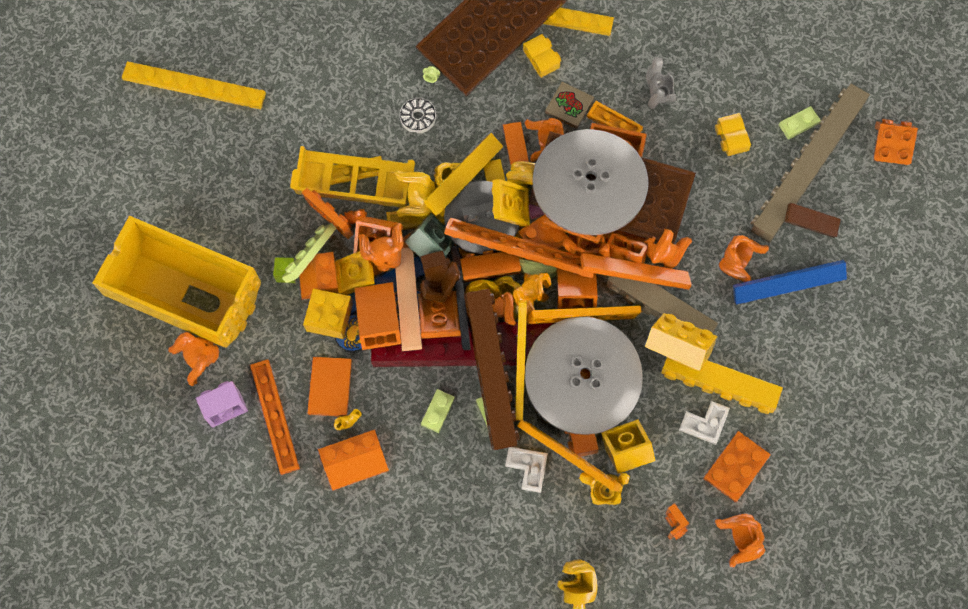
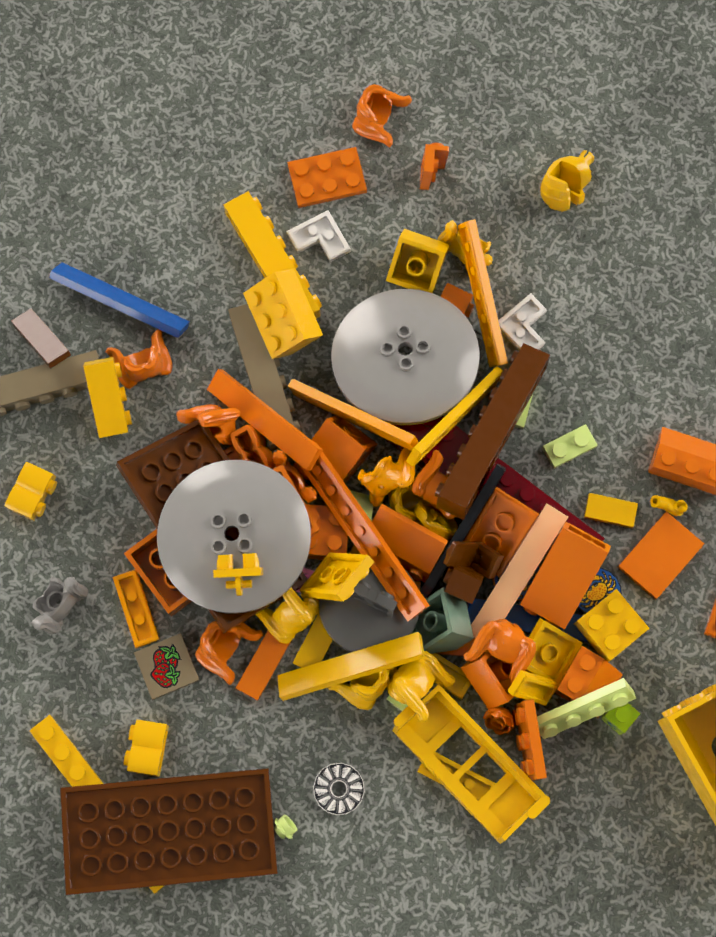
camera: 145 degrees left, 5 degrees up
(348, 242) = (532, 686): none -> yellow tile
(381, 390) = (610, 510): none -> yellow tile
(566, 152) = (250, 568): none -> yellow hips
(740, 214) = (107, 397): none -> yellow brick

